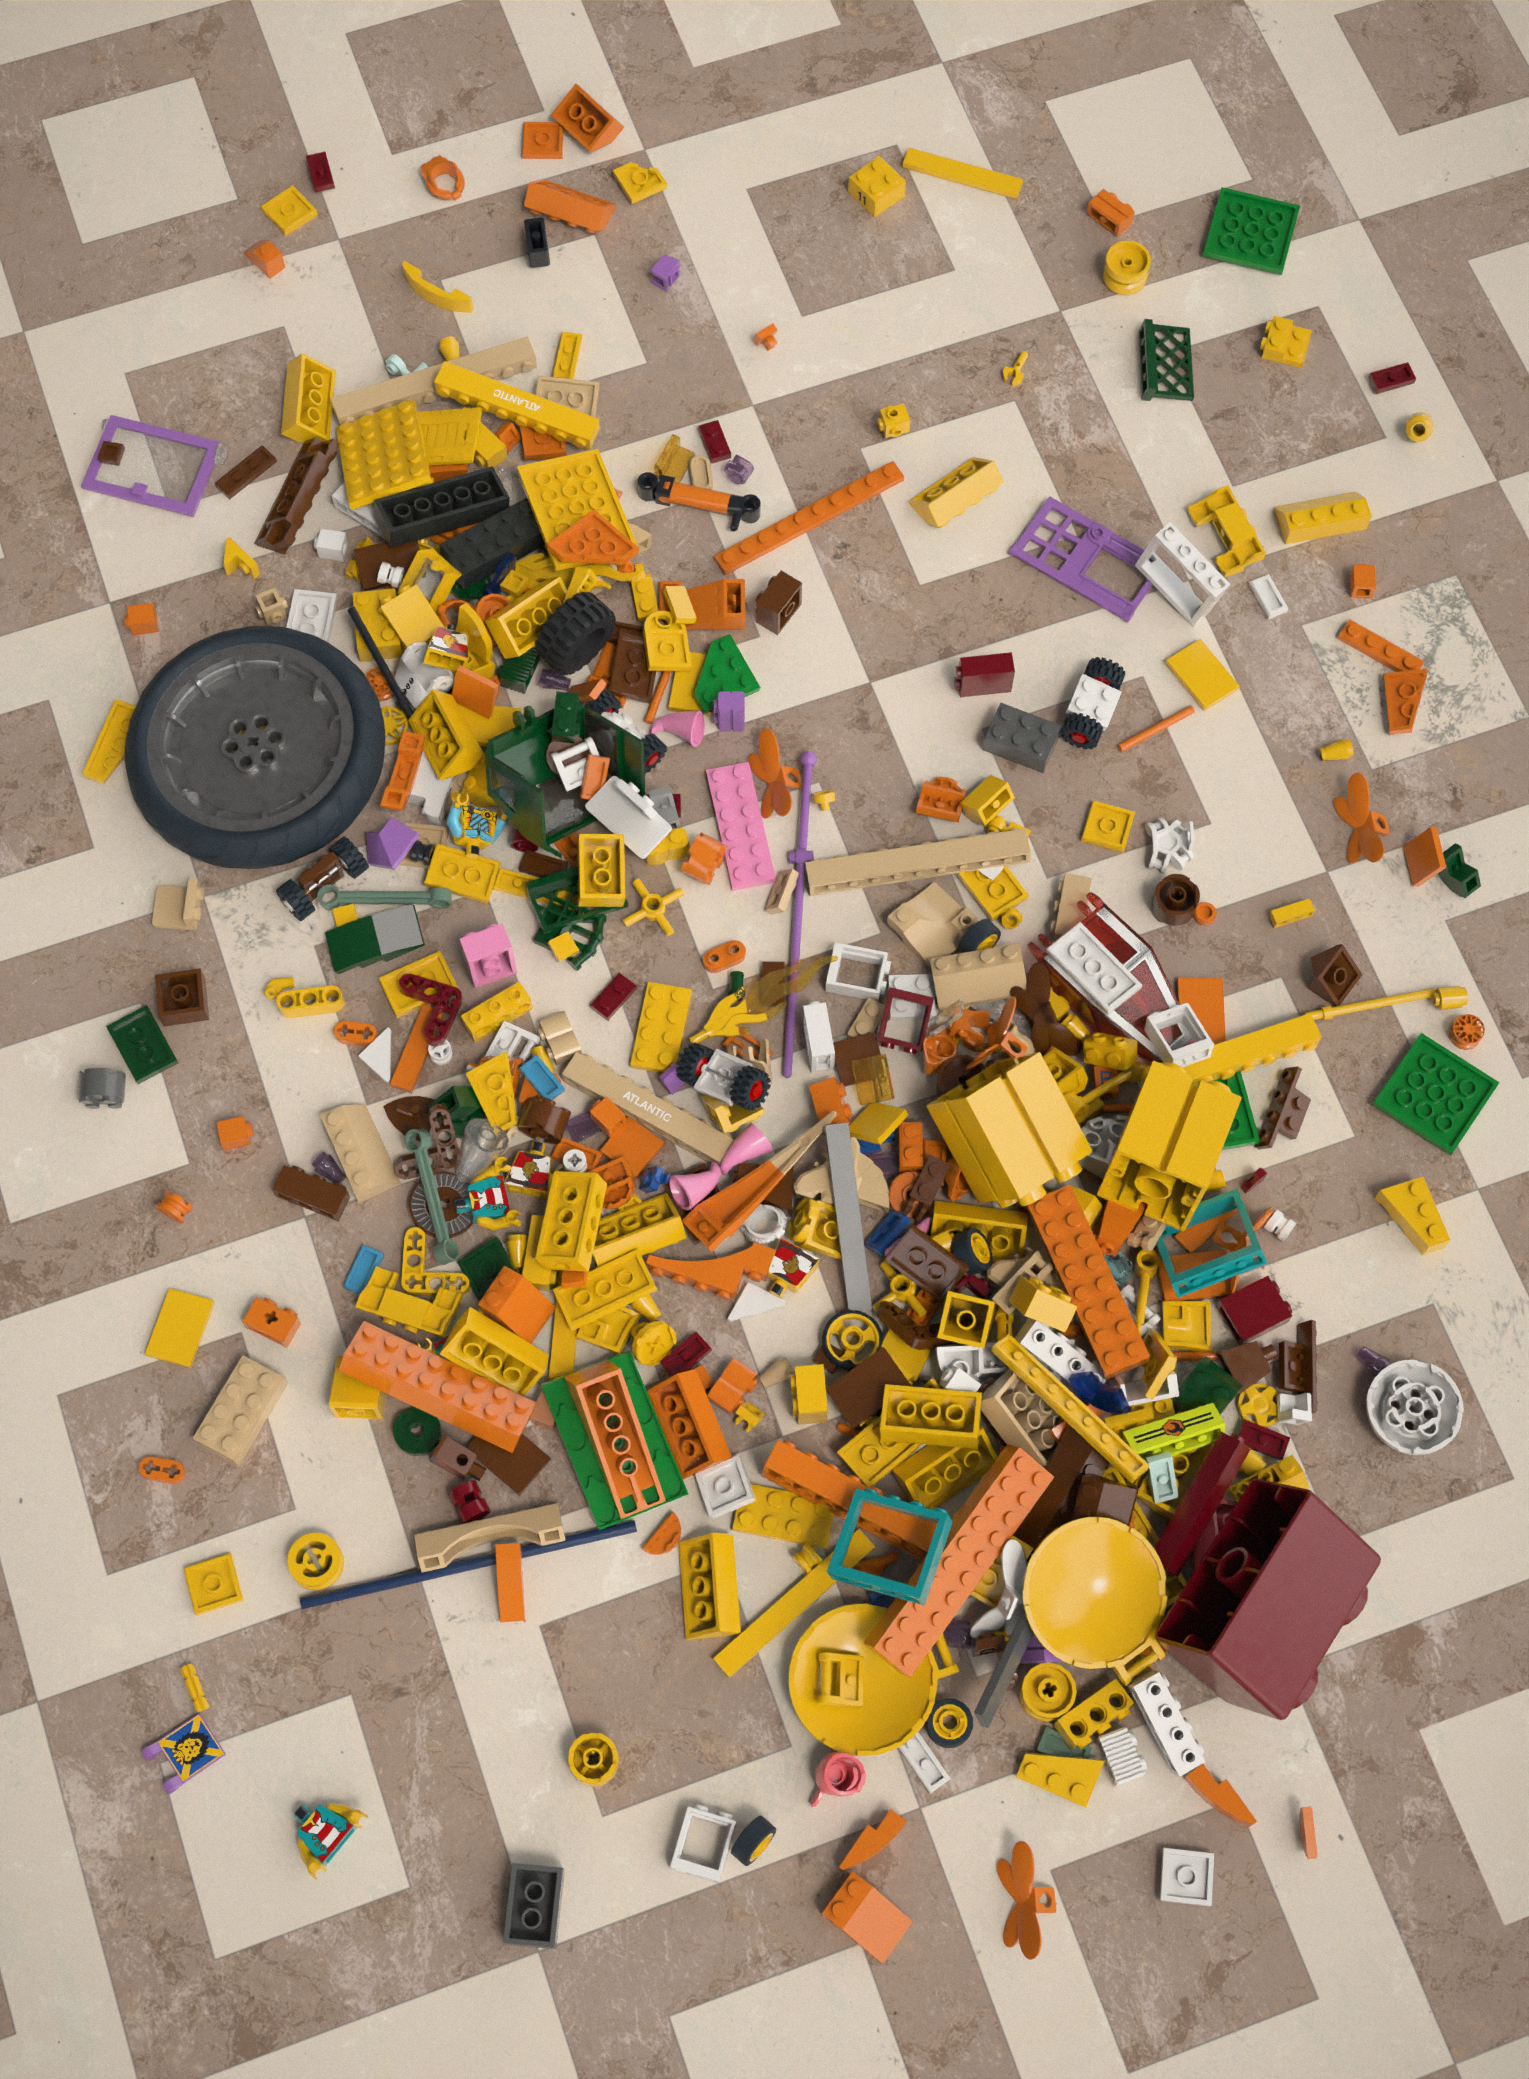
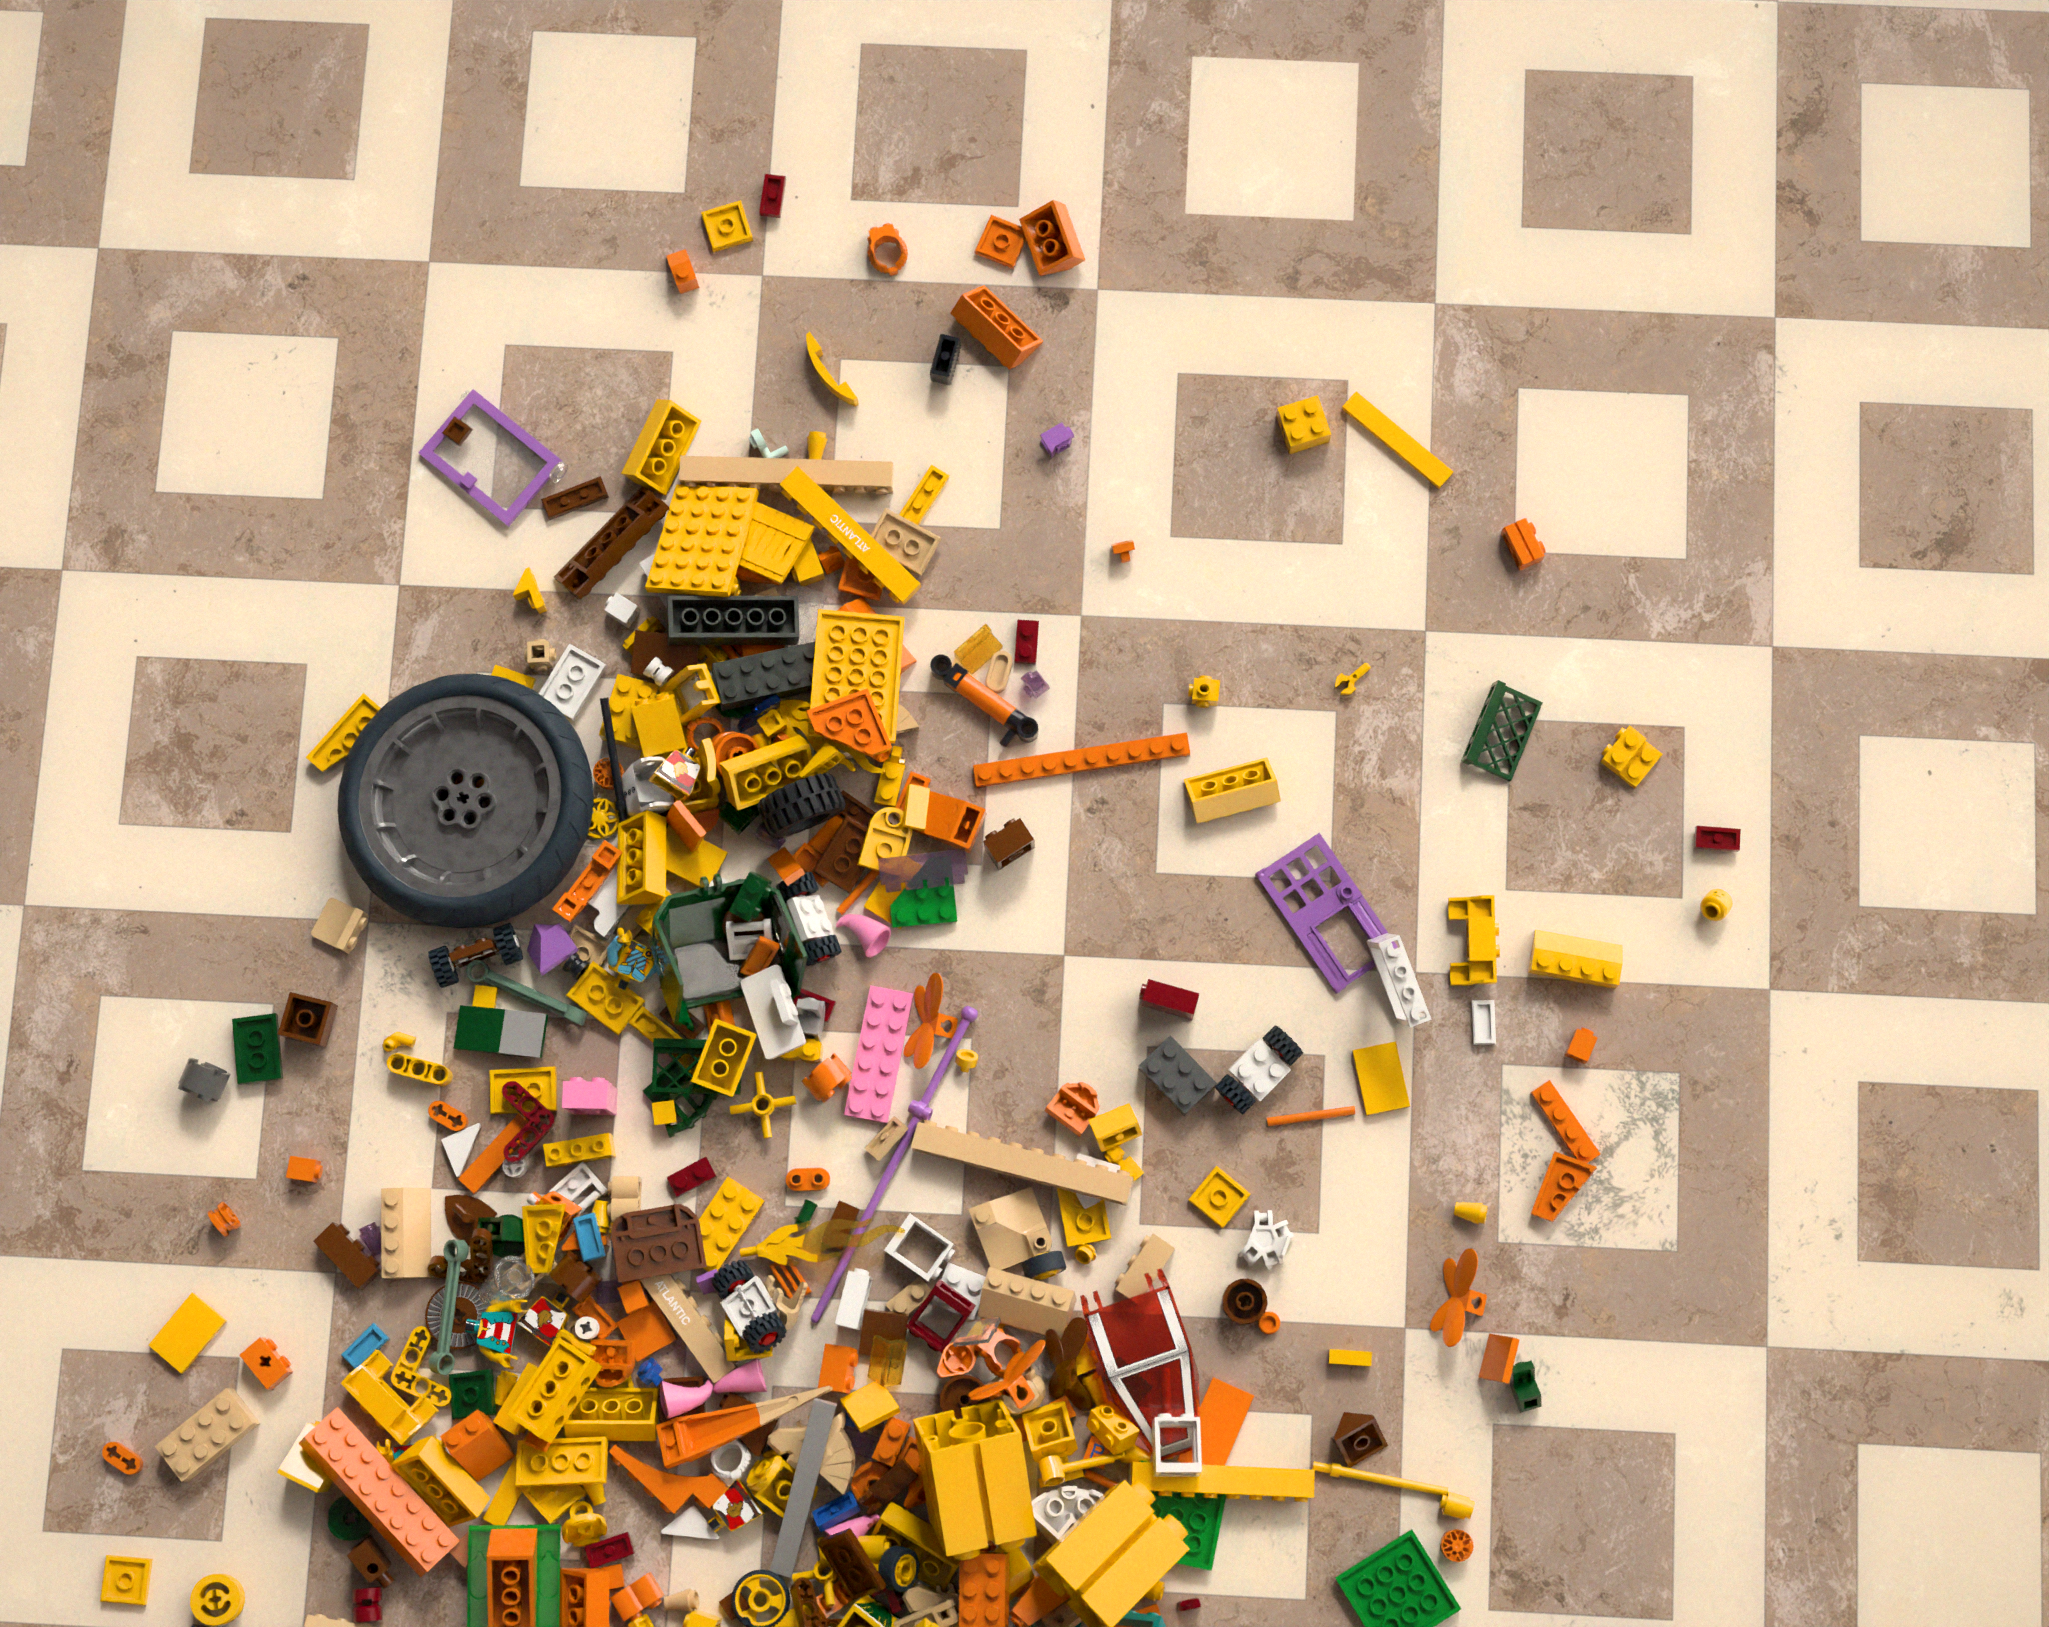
camera: 30 degrees right, 10 degrees up
(141, 619) = (419, 618): orange brick -> none
(514, 1468) = (420, 1590): reddish brown tile -> none
(609, 1057) = (656, 1242): none -> reddish brown plate
(638, 181) = (1075, 326): yellow plate -> none
(705, 651) = (920, 867): none -> windscreen
(730, 711) = (915, 938): medium lavender brick -> none
(1093, 968) = (1127, 1348): white tile -> none
(1126, 267) = (1512, 626): yellow wheel -> none
(1251, 231) = (1654, 619): green plate -> none
(1285, 1111) = (1250, 1550): reddish brown bracket -> none

